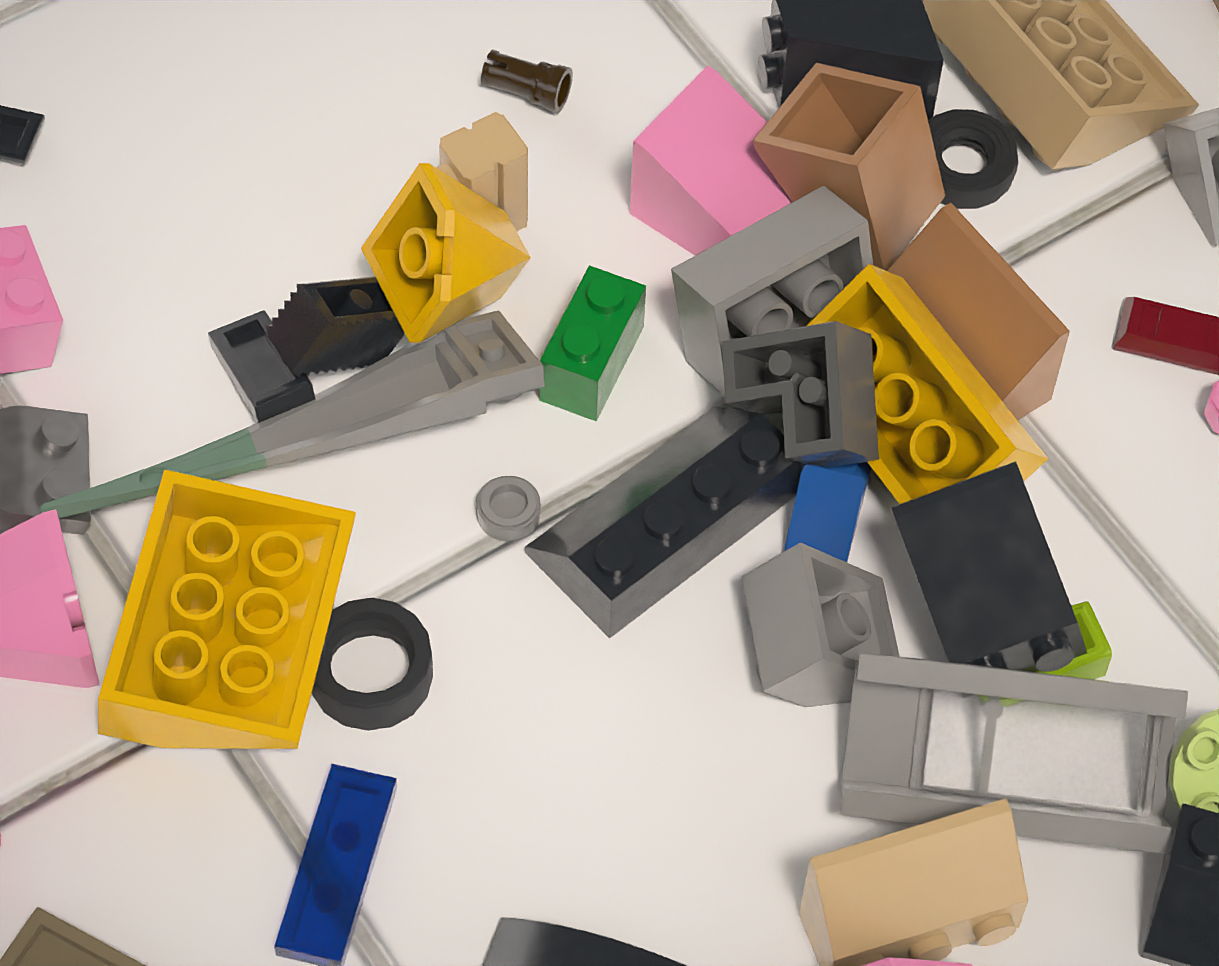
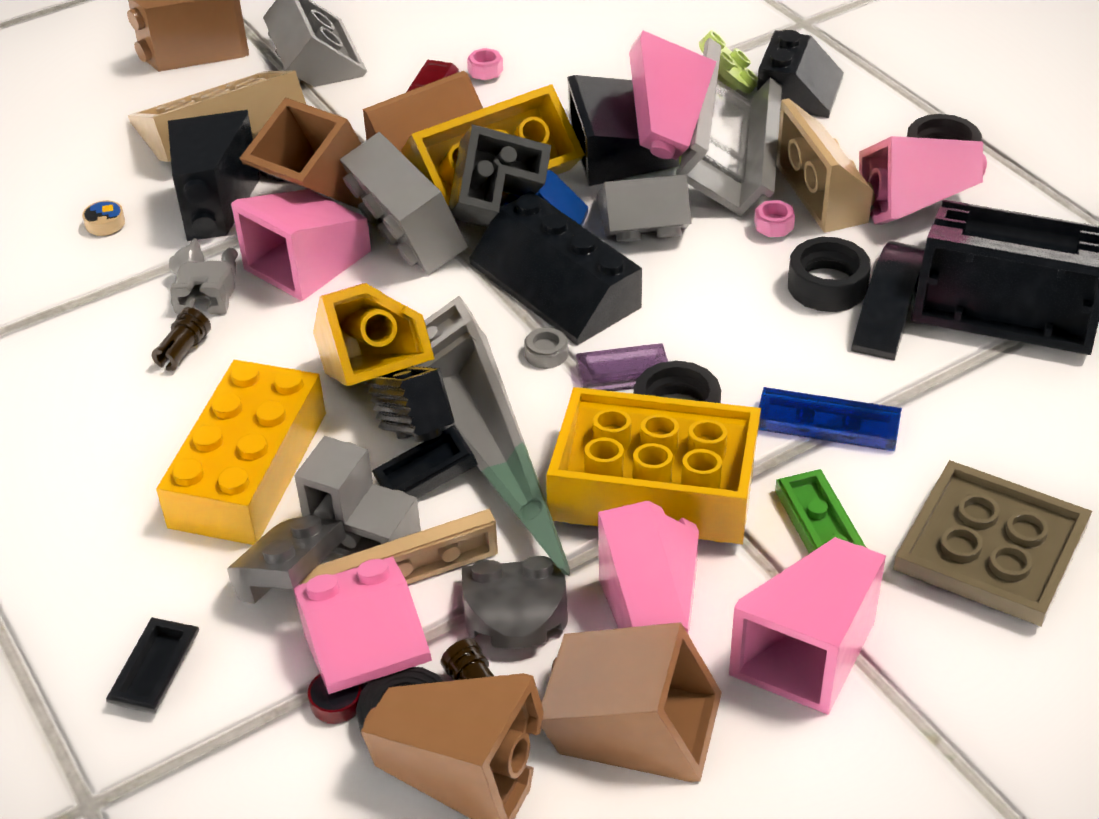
camera: 85 degrees left, 15 degrees down
(92, 218) = (284, 556): none -> flat silver slope
(93, 348) = (429, 550): none -> tan tile
(119, 843) = (815, 510): none -> bright green tile
(173, 284) = (339, 486): none -> light grey brick
(287, 162) = (242, 452): none -> yellow brick
(460, 606) = (617, 367): none -> clear purple tile
(491, 163) = (288, 329): tan brick -> none
(592, 342) = (423, 285): green brick -> none
(639, 82) = (202, 278): none -> light grey animal
(667, 845) = (829, 294): none -> black tyre
(806, 826) = (774, 218): none -> bright pink tile
(986, 607) = (667, 93): none -> bright pink slope

